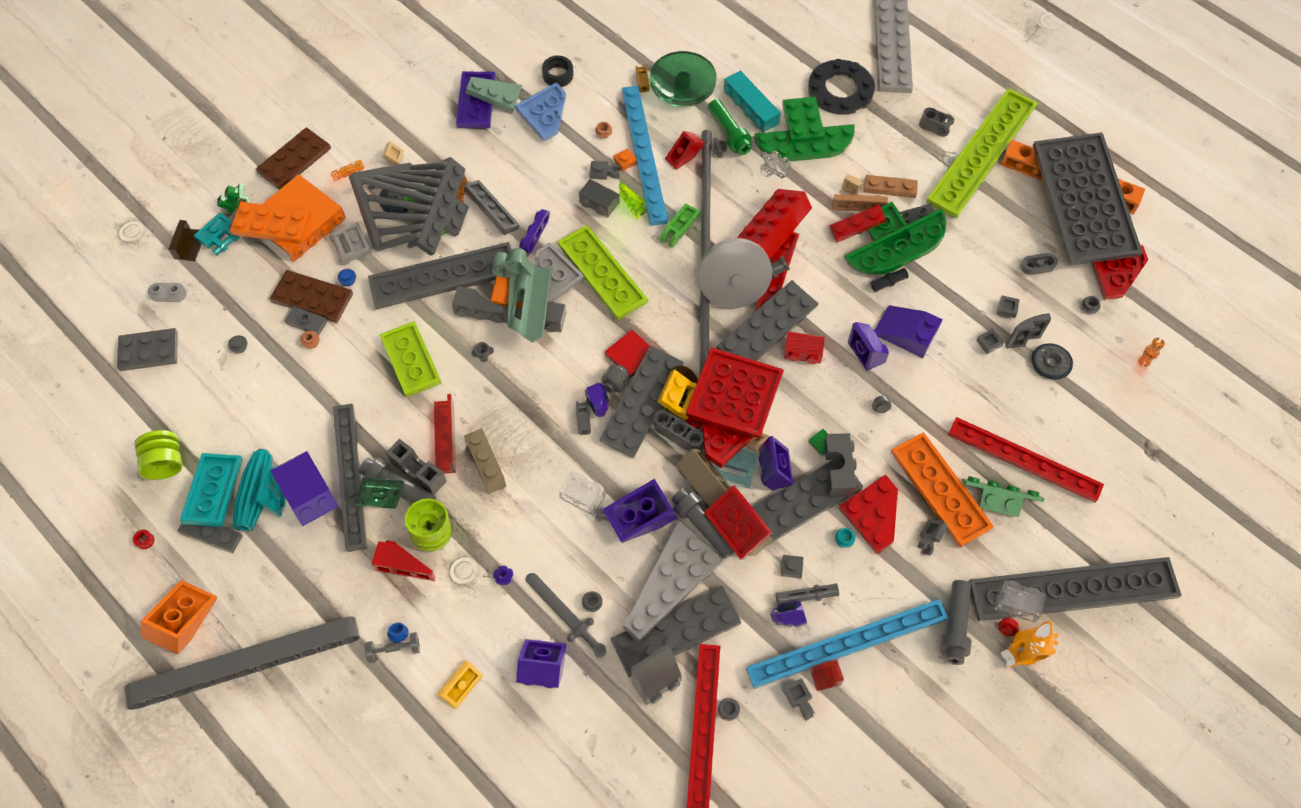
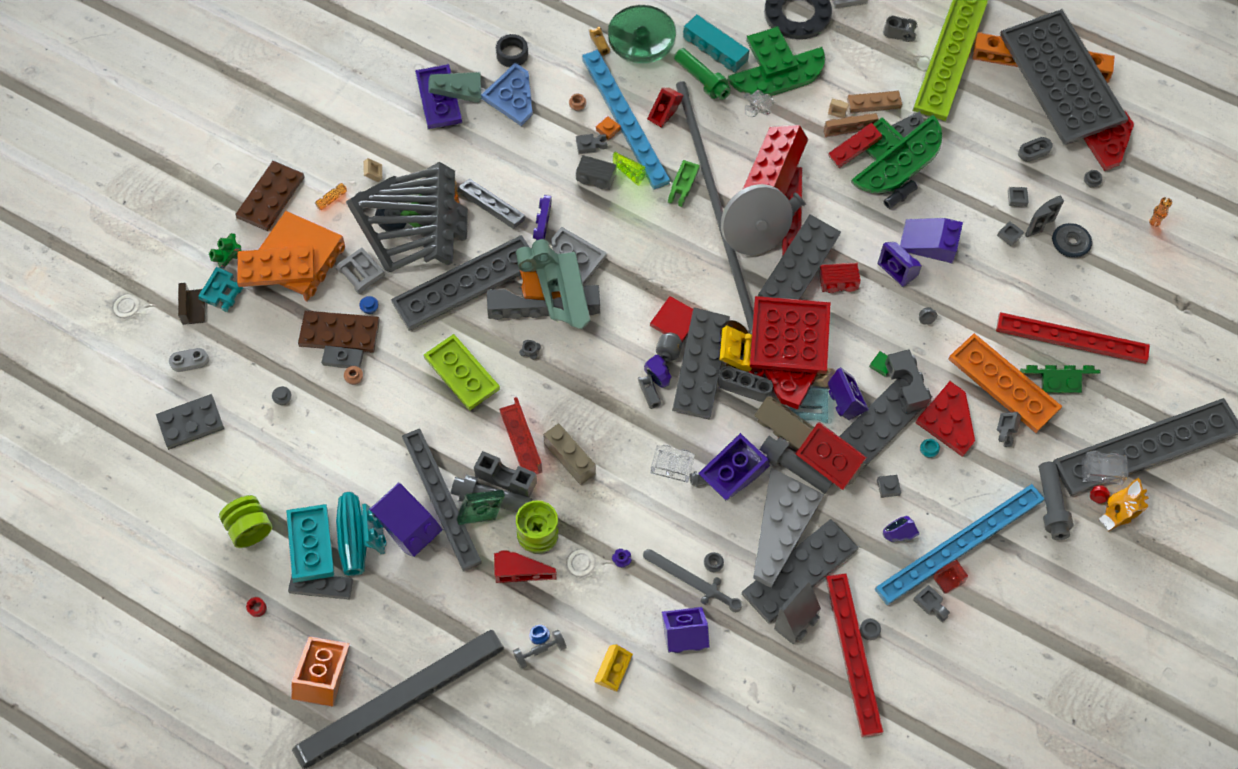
camera: 15 degrees left, 0 degrees up
(603, 272) = (623, 245): lime plate -> none
(719, 147) = (698, 96): dark grey plate -> none
(813, 593) = (918, 505): dark grey pin -> none

